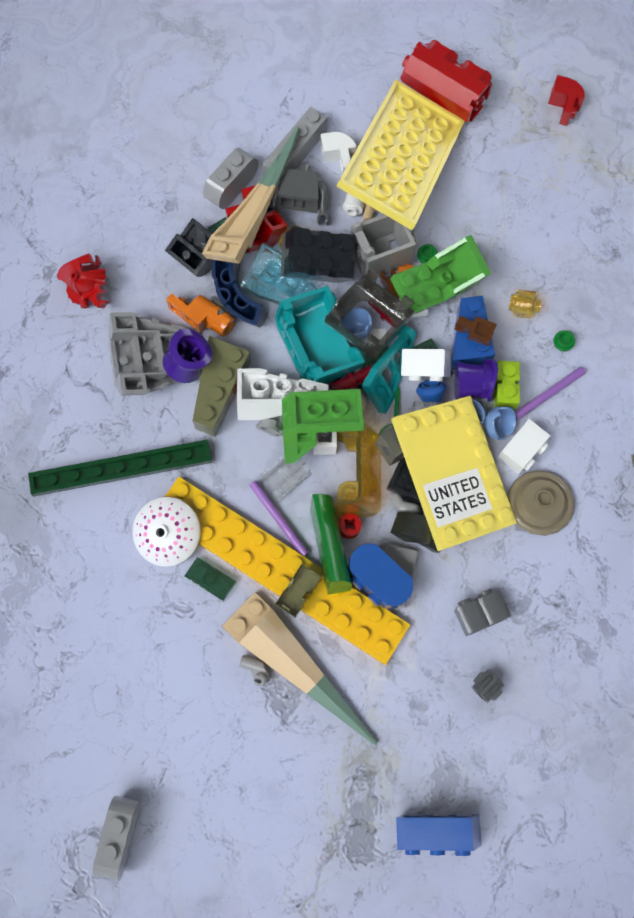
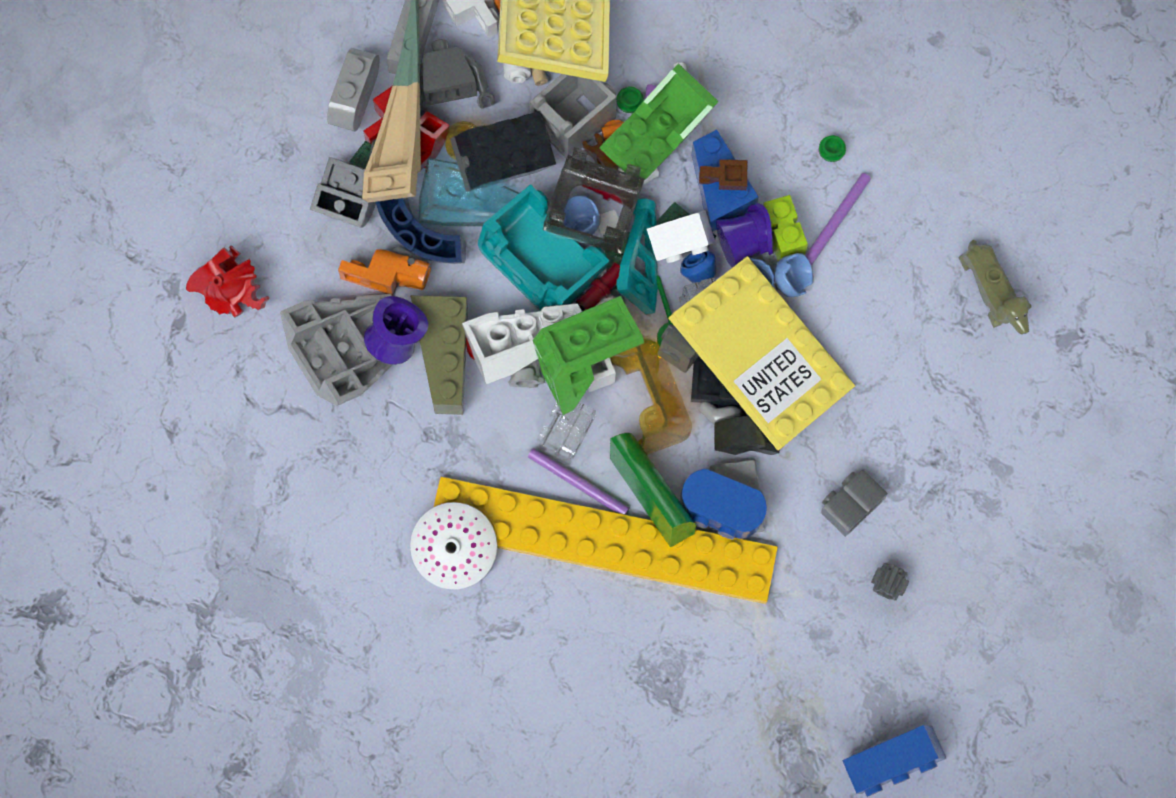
camera: 20 degrees left, 0 degrees up
(119, 468) = (366, 492): dark green plate -> none
(210, 579) = (526, 581): clear green plate -> none
(257, 668) = (623, 662): light grey arm -> none
(268, 638) = (621, 623): tan plate -> none
(292, 597) = (637, 543): olive piece -> none
(350, 530) = (663, 464): red wheel -> none
(523, 447) = (831, 292): white brick -> none
(524, 303) = (769, 120): clear yellow head -> none
(541, 502) = (874, 351): dark tan piece -> none

